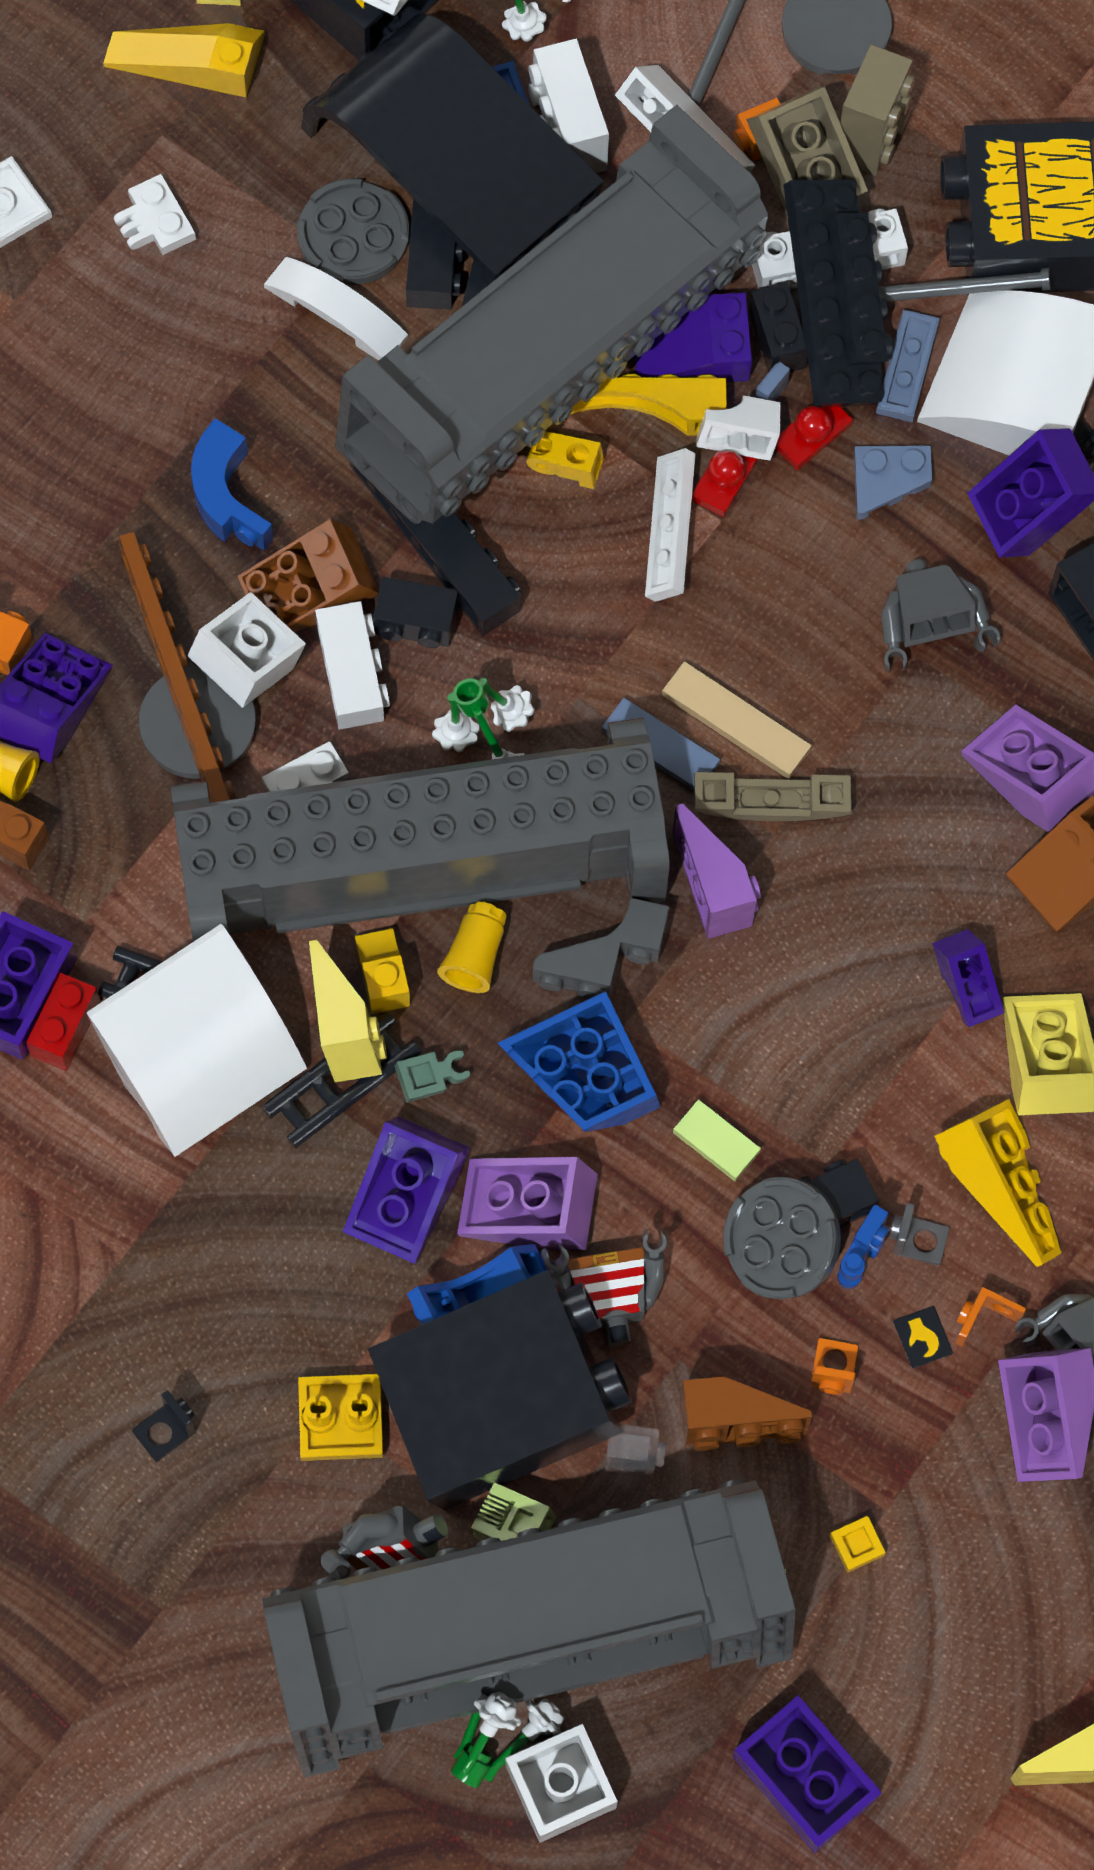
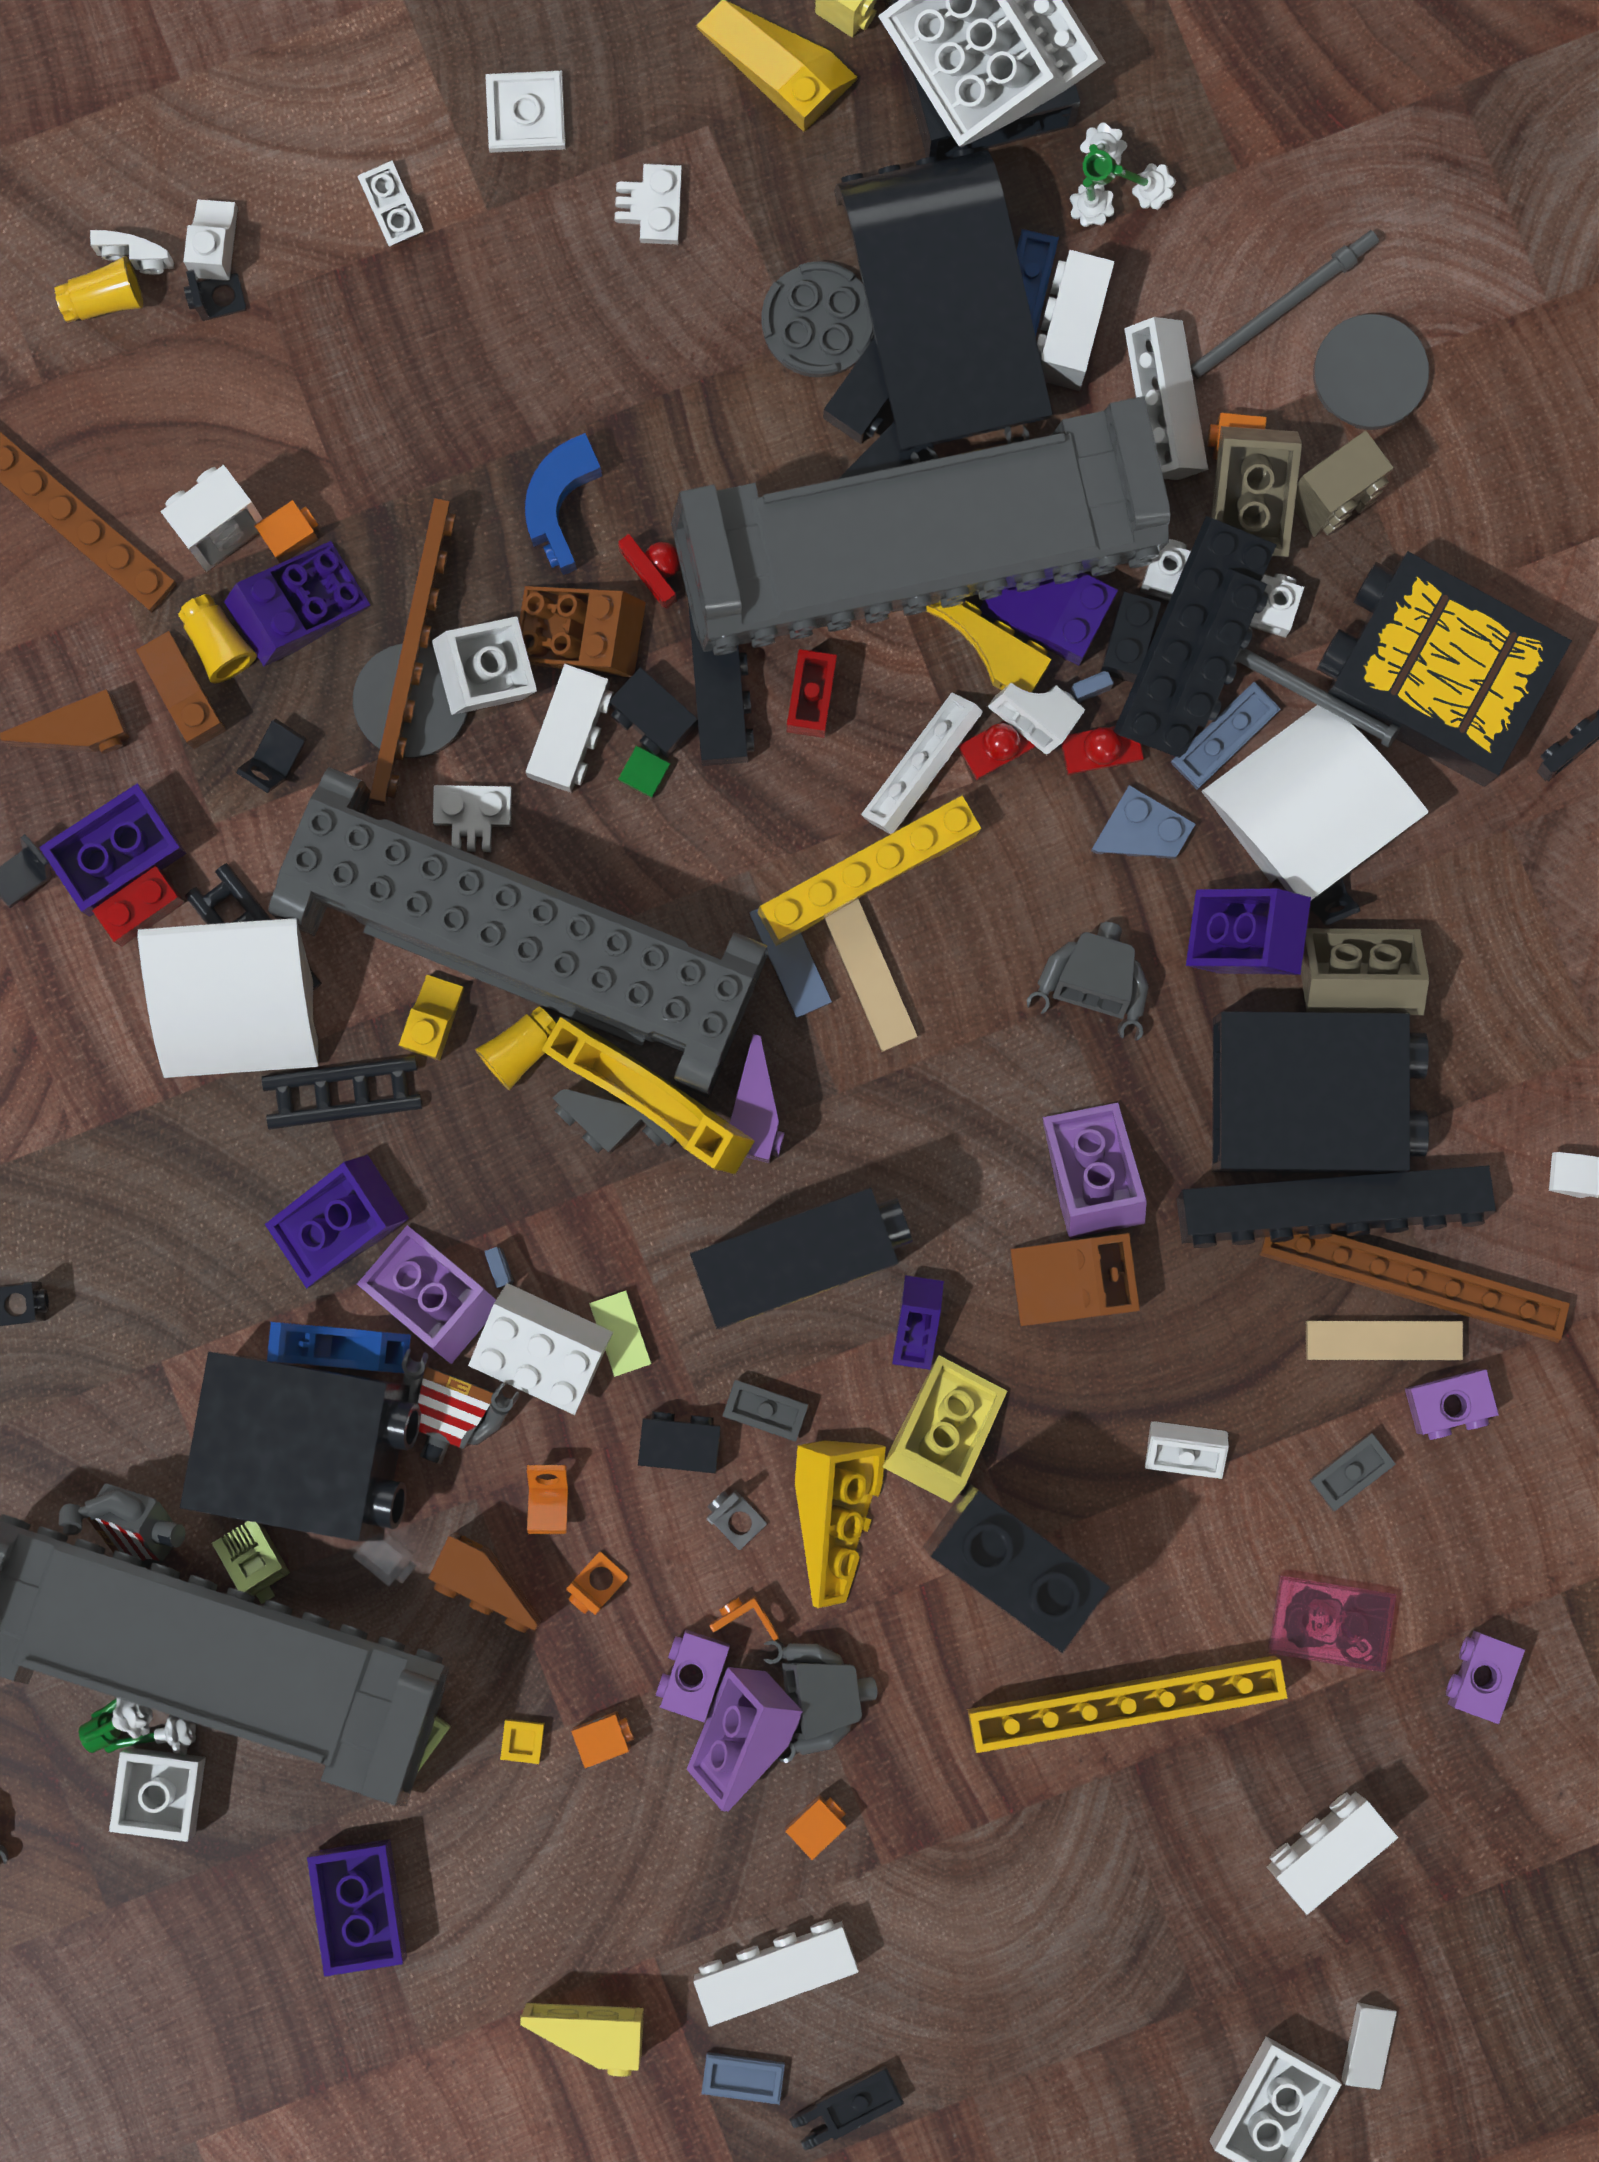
camera: 30 degrees right, 15 degrees up
(106, 828) = (274, 756): none -> black bracket
(338, 305) = (759, 385): white slope -> none
(339, 497) = (653, 567): none -> red tile
(340, 1417) = (164, 1382): yellow plate -> none
(346, 1030) = (361, 1055): light yellow slope -> none
(425, 1076) = (410, 1133): sand green plate -> none
(437, 666) = (644, 772): none -> green tile
(471, 698) = (636, 835): plant -> none
(541, 518) = (811, 693): none -> red brick
(567, 458) = (873, 650): yellow leg -> none
(575, 1143) = (499, 1267): none -> sand blue tile
(586, 1065) = (546, 1208): blue wedge -> none
(590, 913) = (673, 1110): none -> yellow arch
(658, 1184) = (540, 1348): none -> white brick
(693, 610) = (868, 869): none -> yellow arch
(744, 1316) = (547, 1500): none -> orange bracket
(772, 798) = (854, 1062): dark tan slope -> none
(782, 1238) = (616, 1455): dark grey tile -> none
(834, 966) = (800, 1256): none -> black brick
(866, 1243) = (686, 1501): blue plate -> none
(885, 1129) = (765, 1410): none -> dark grey plate
(922, 1337) = (686, 1601): black sticker -> none
(927, 1494) = (602, 1738): none -> orange brick
(975, 1367) = (695, 1699): none -> medium lavender brick

